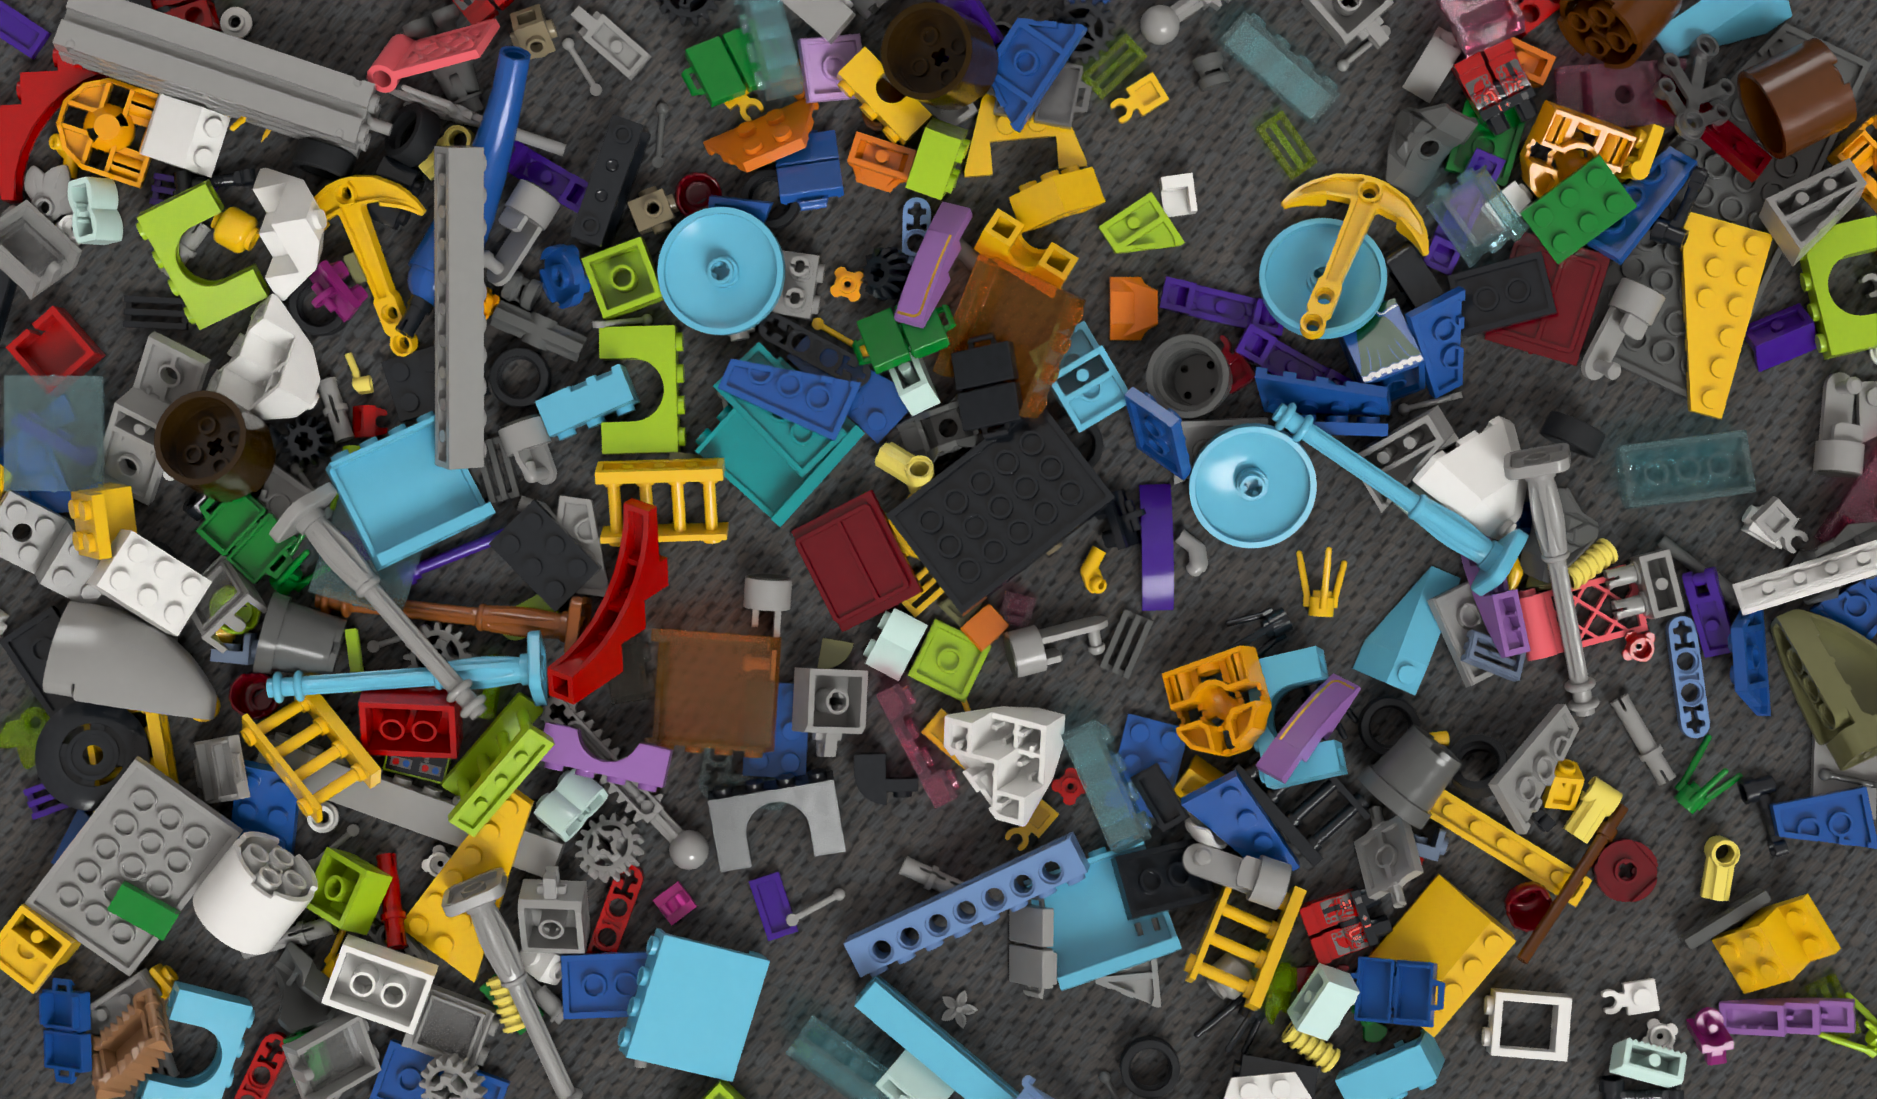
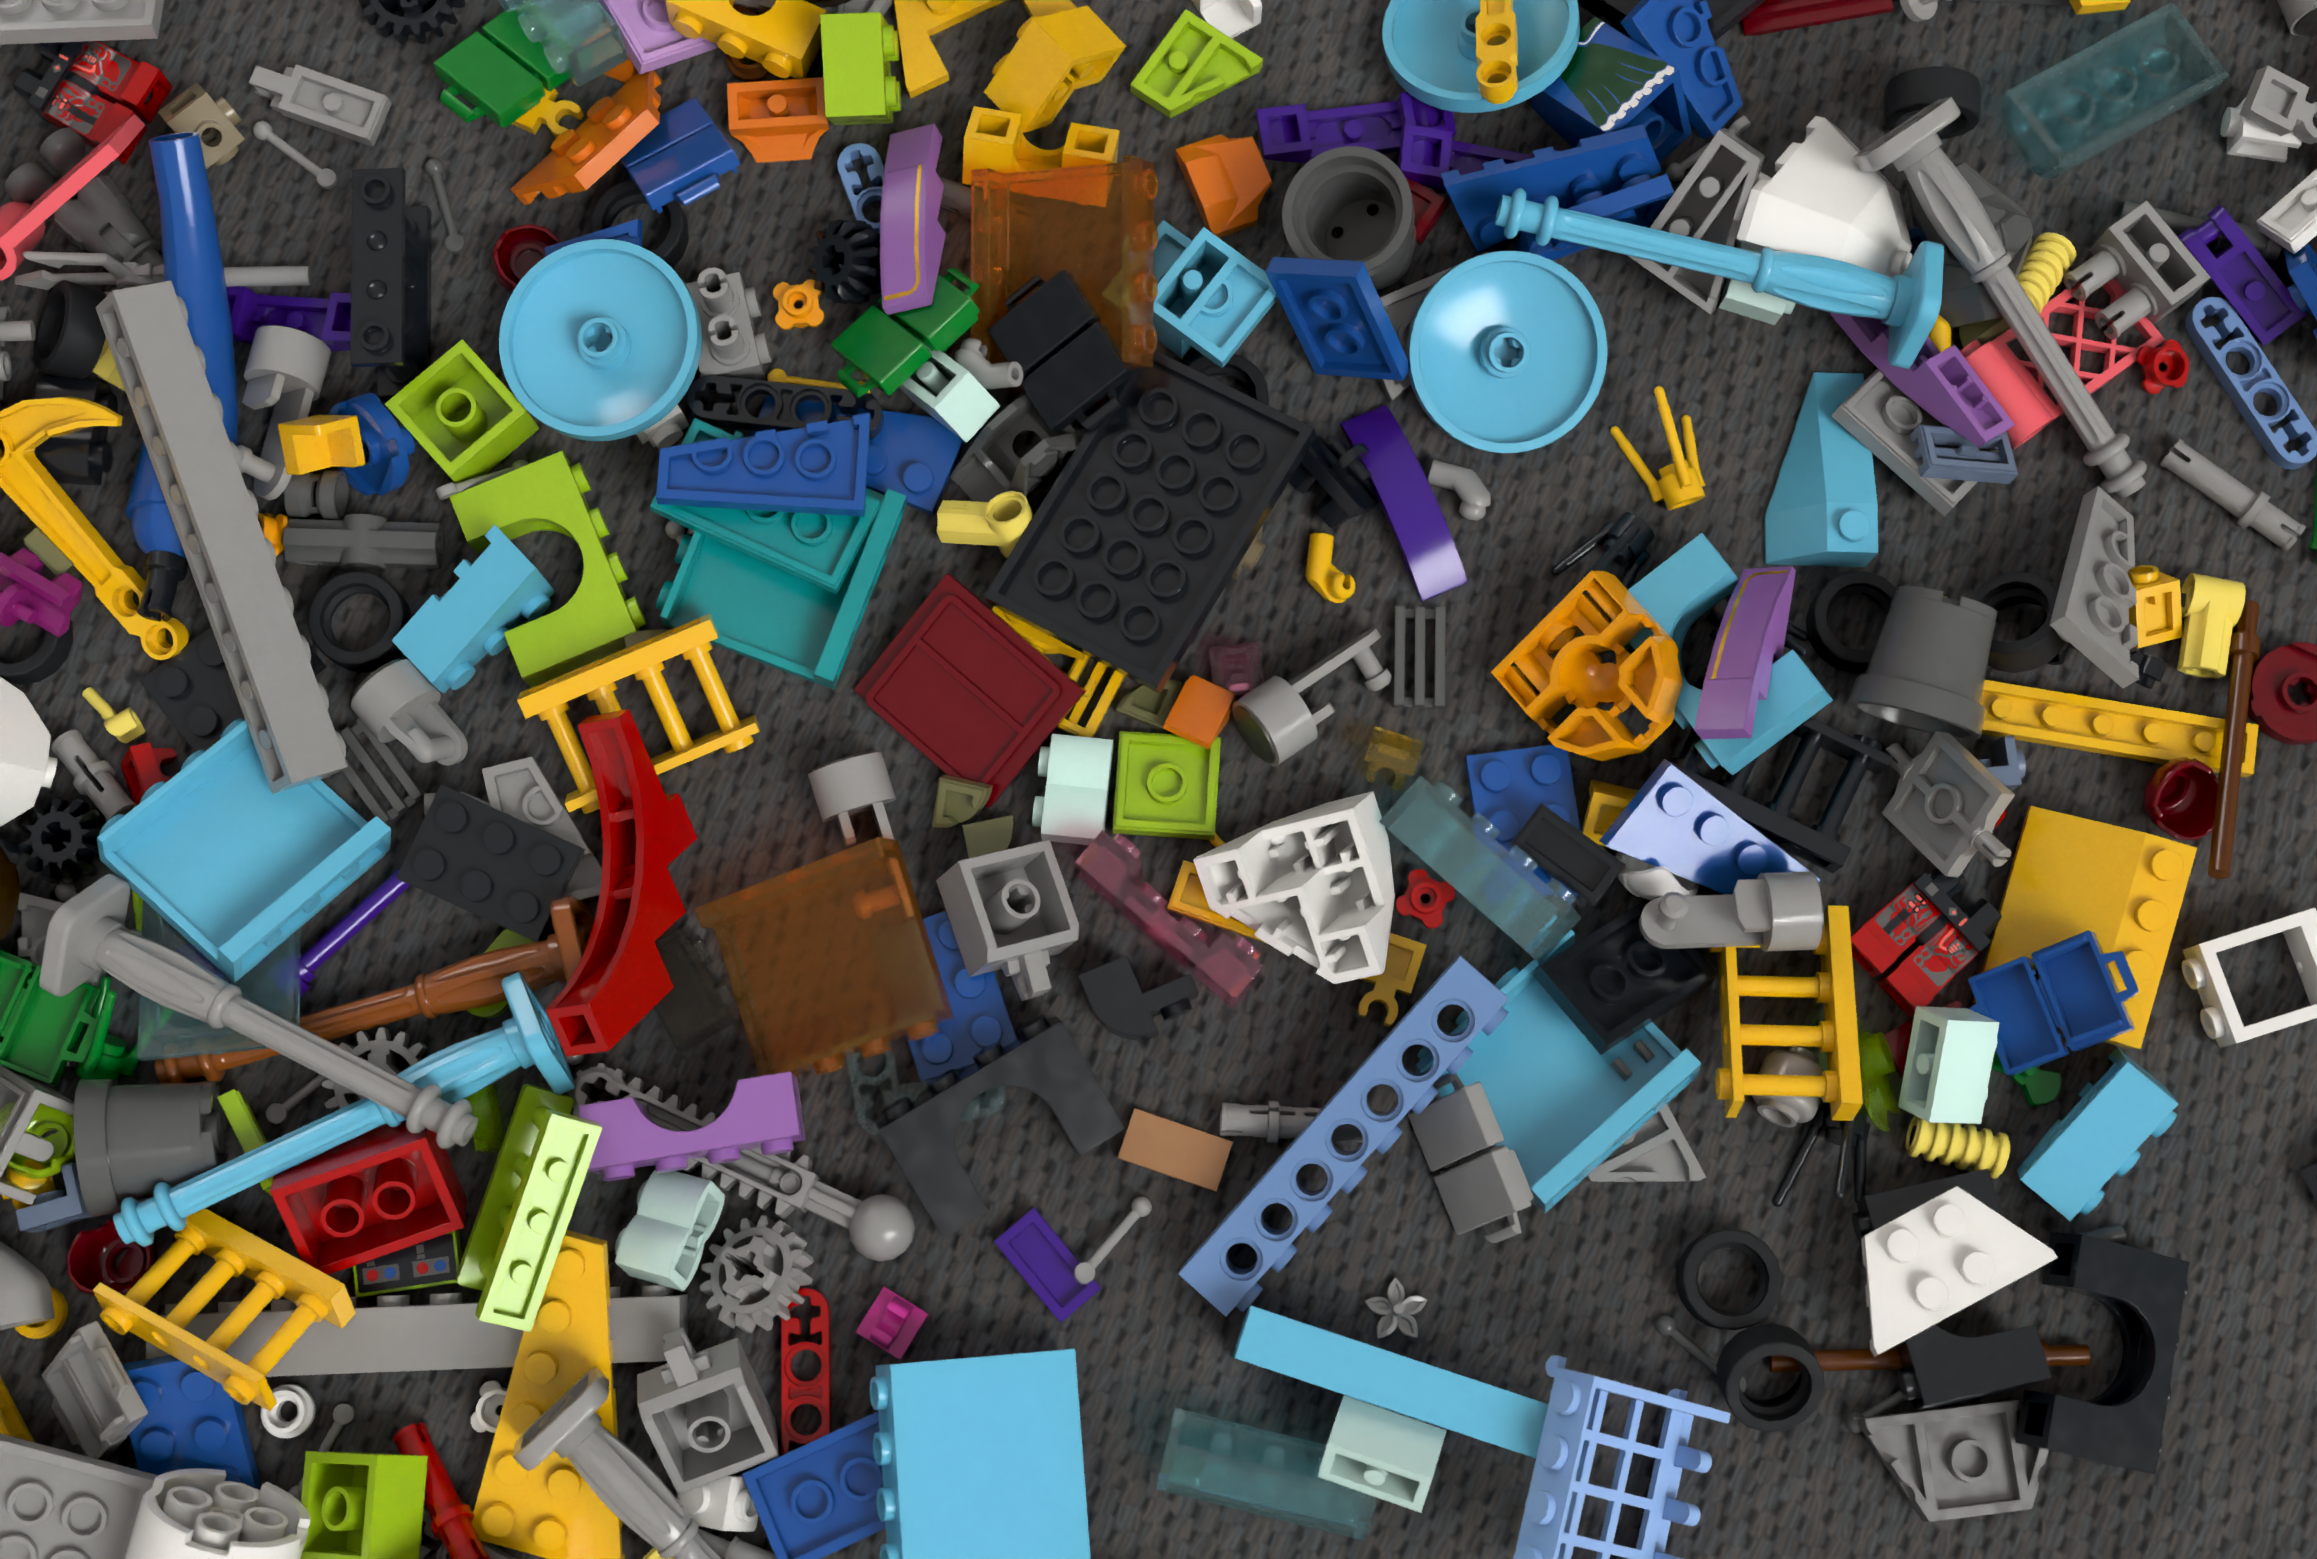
camera: 20 degrees left, 10 degrees down
(536, 263) = (321, 443): none -> yellow panel
(642, 207) = (470, 304): dark tan brick -> none
(826, 622) = (958, 800): none -> olive tile
(870, 870) = (1175, 1150): none -> medium nougat tile
(939, 381) = (989, 375): none -> light grey arm
(1086, 695) = (1394, 752): none -> clear yellow tile

